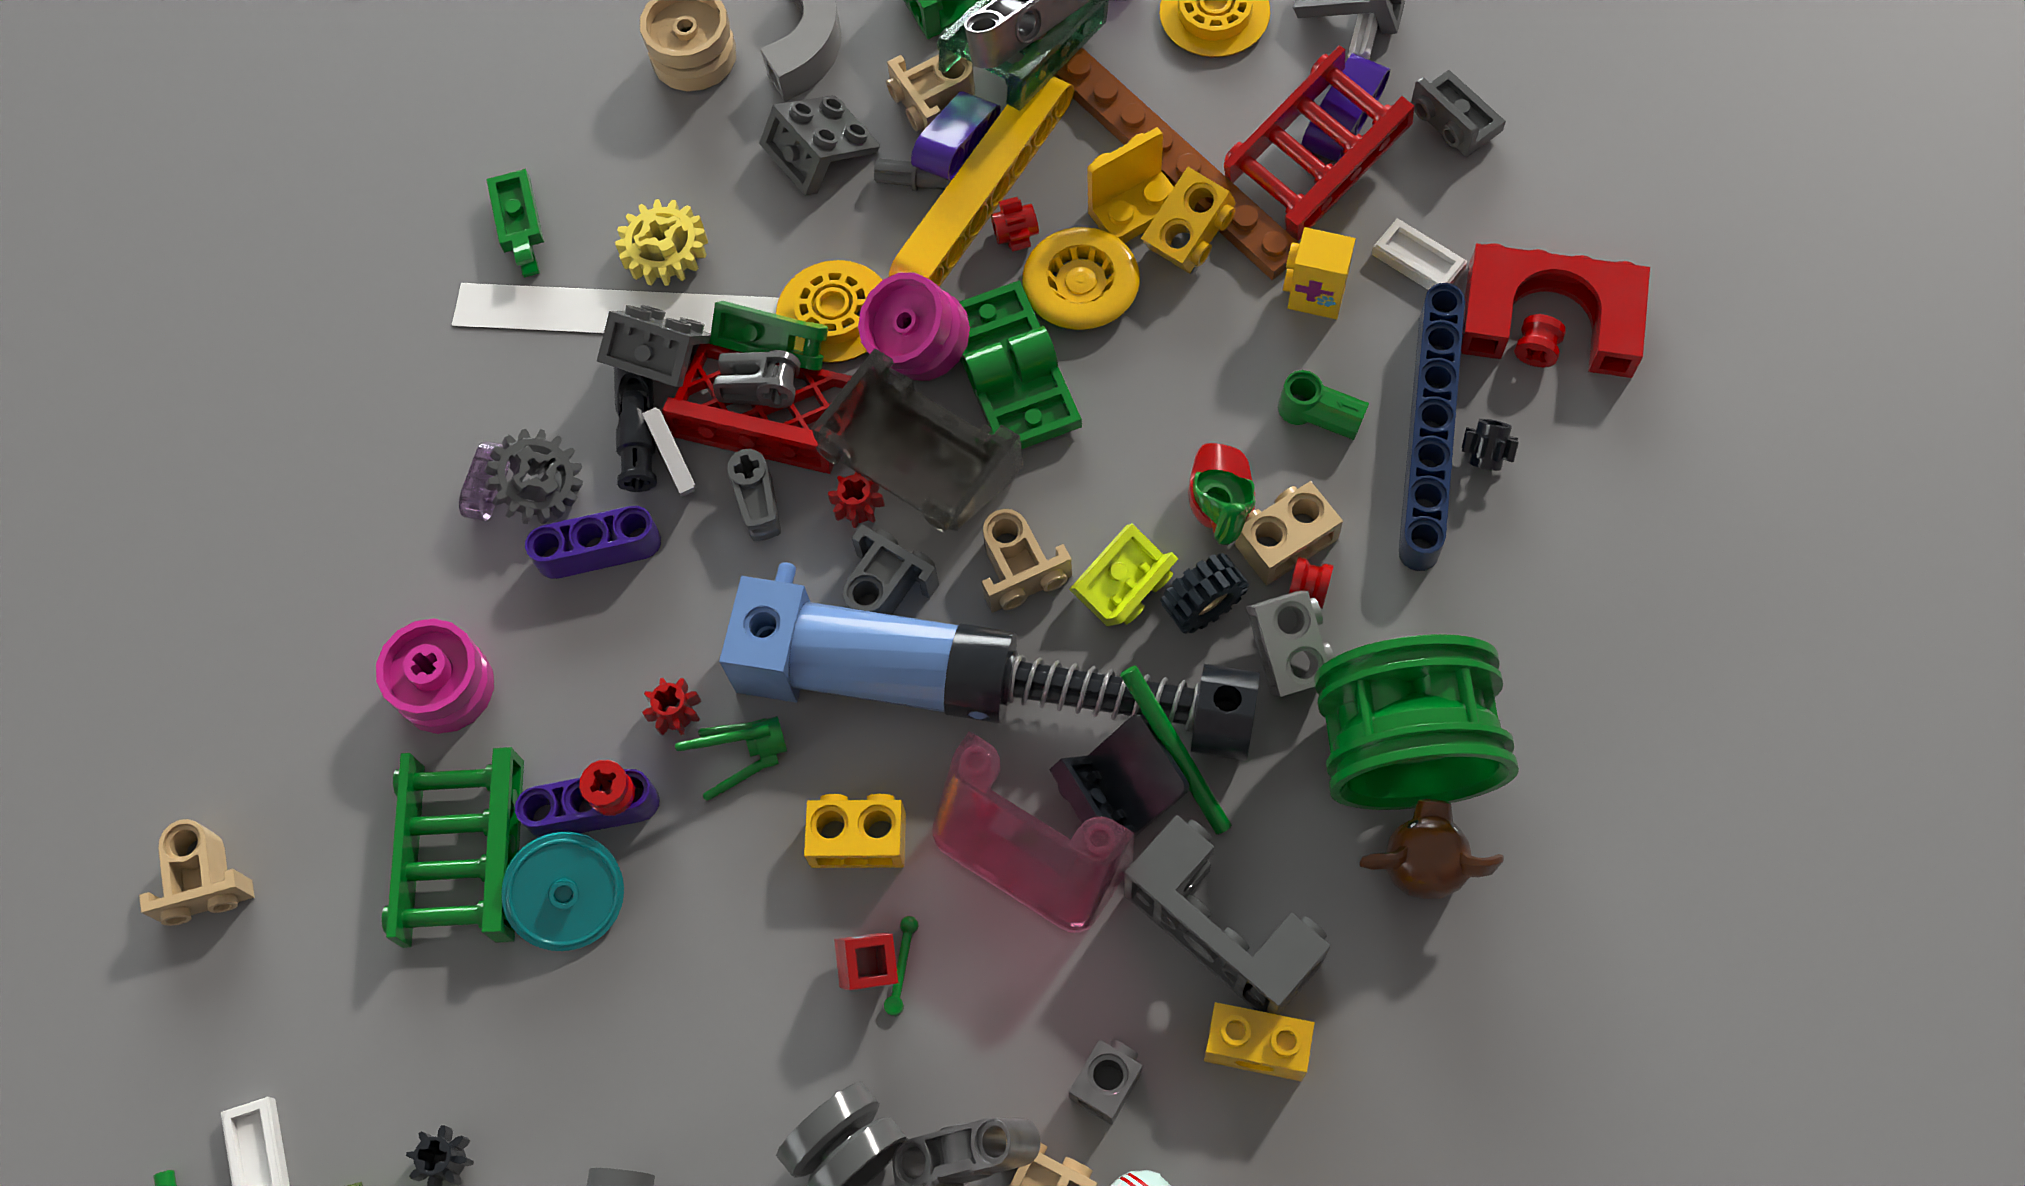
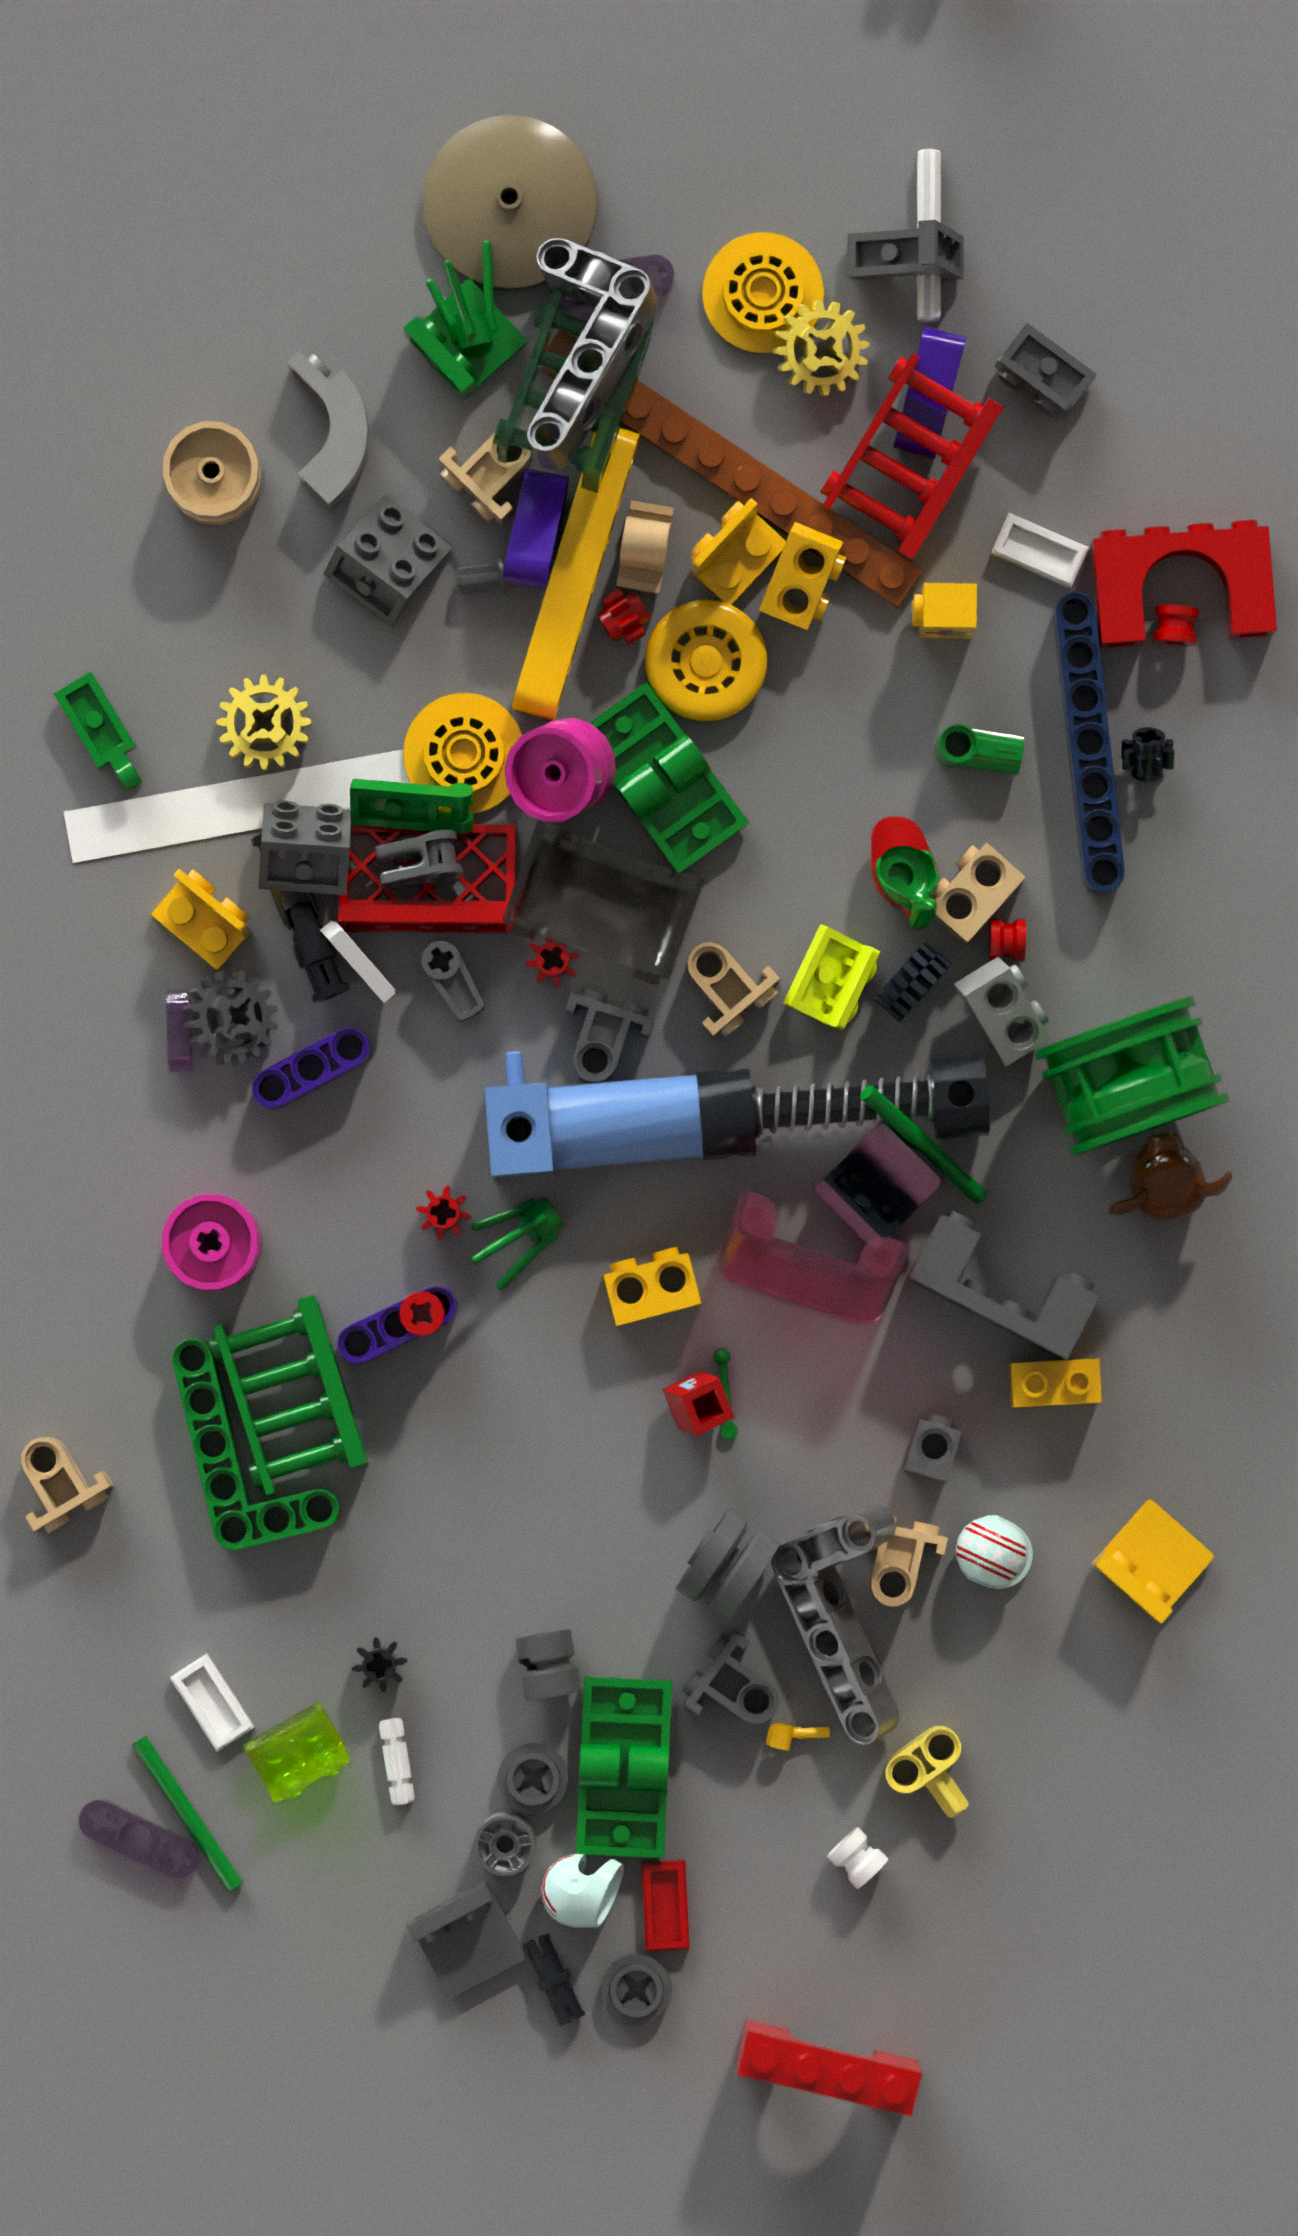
camera: 20 degrees left, 20 degrees up
(370, 897) = (229, 1463): none -> green beam
(546, 387) = (201, 921): none -> yellow bracket
(562, 891) = (407, 1411): teal shield -> none
(1050, 169) = (644, 547): none -> tan pin
(1255, 57) = (834, 333): none -> light yellow gear

